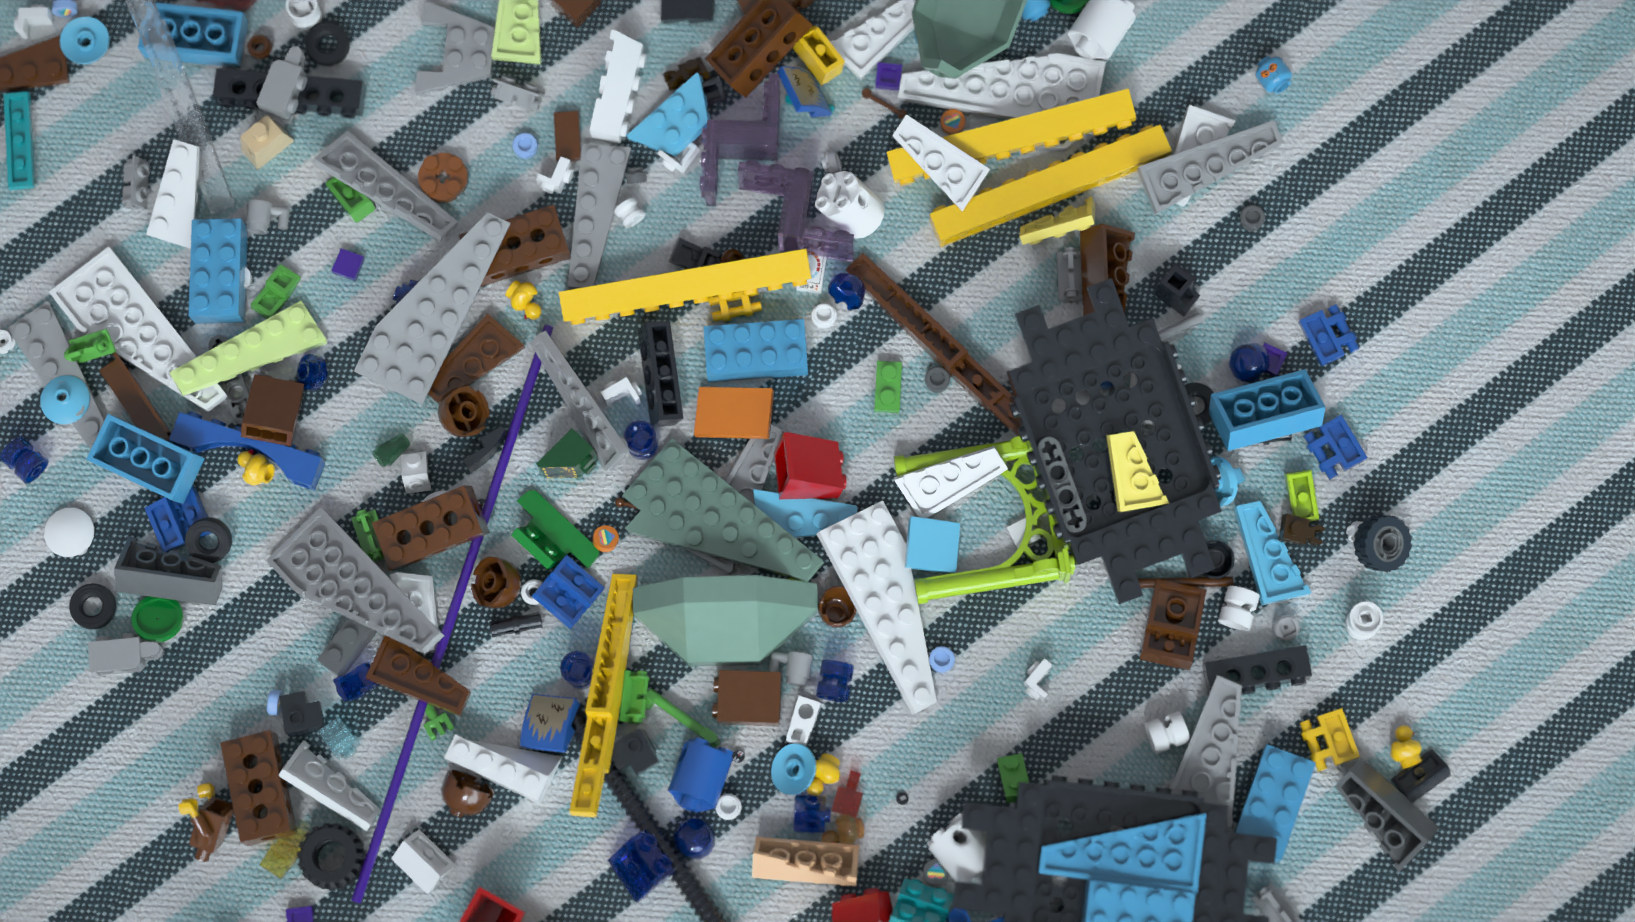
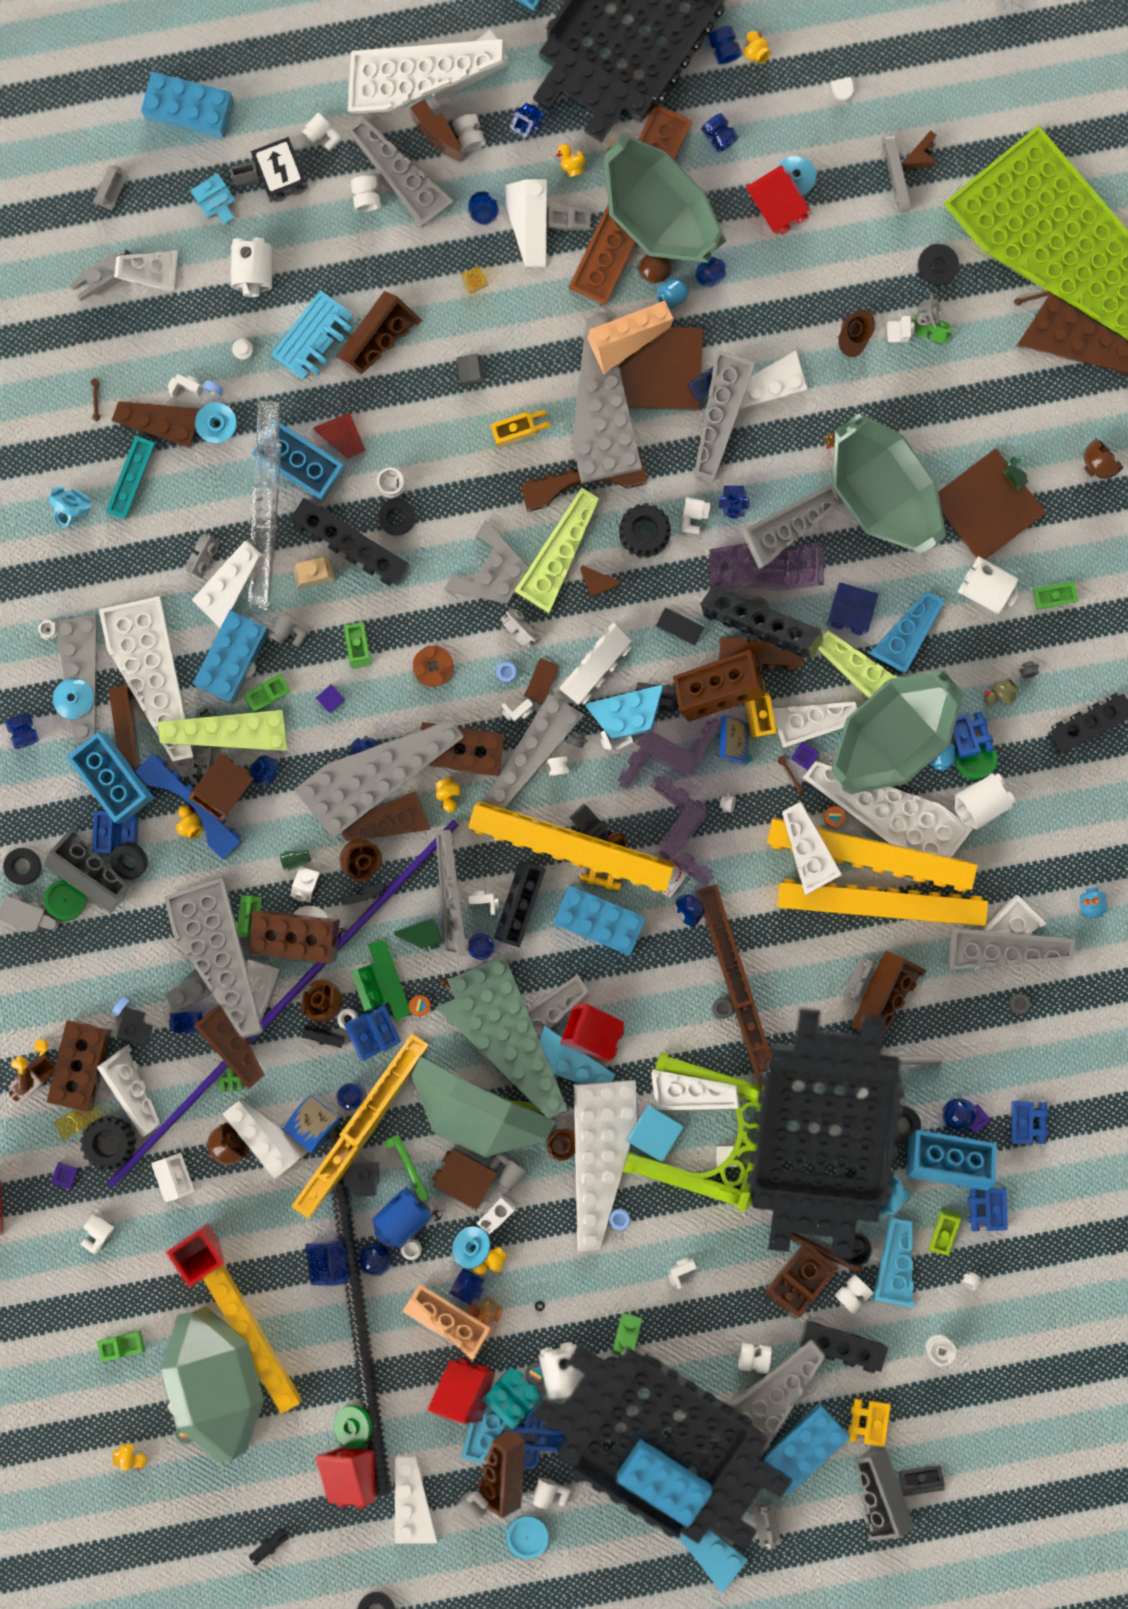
camera: 25 degrees right, 10 degrees up
(69, 532) = (30, 801): white dish -> none
(90, 347) = (109, 668): bright green hinge -> none
(259, 40) = (340, 488): reddish brown plate -> none
(283, 85) = (347, 539): light grey hinge -> none
(339, 739) = (154, 1058): clear light blue brick -> none
(373, 177) = (378, 637): light grey wing -> none
(632, 704) = (385, 1129): bright green hinge -> none
(685, 72) = (654, 678): dark brown plate -> none
(734, 412) = (559, 959): orange tile -> none
(824, 315) = (663, 917): white plate -> none
(836, 672) = (538, 1192): clear blue wheel -> none
(848, 799) = (499, 1287): clear red plate -> none
(849, 204) = (723, 847): white cylinder -> none
(888, 387) = (683, 995): bright green plate -> none
(1065, 482) = (768, 1144): dark grey beam -> none
(1068, 220) = (878, 939): light yellow wing -> none
(1132, 477) = (825, 1166): light yellow wing -> none
(1148, 855) = (690, 1448): dark azure wing -> none
(1177, 290) = (935, 1032): black brick -> none
(1286, 627) = (881, 1323): light grey tile -> none
(1297, 530) = (928, 1258): dark brown plate -> none
(1395, 541) = (984, 1300): black wheel -> none
(1408, 750) = (921, 1460): yellow animal -> none

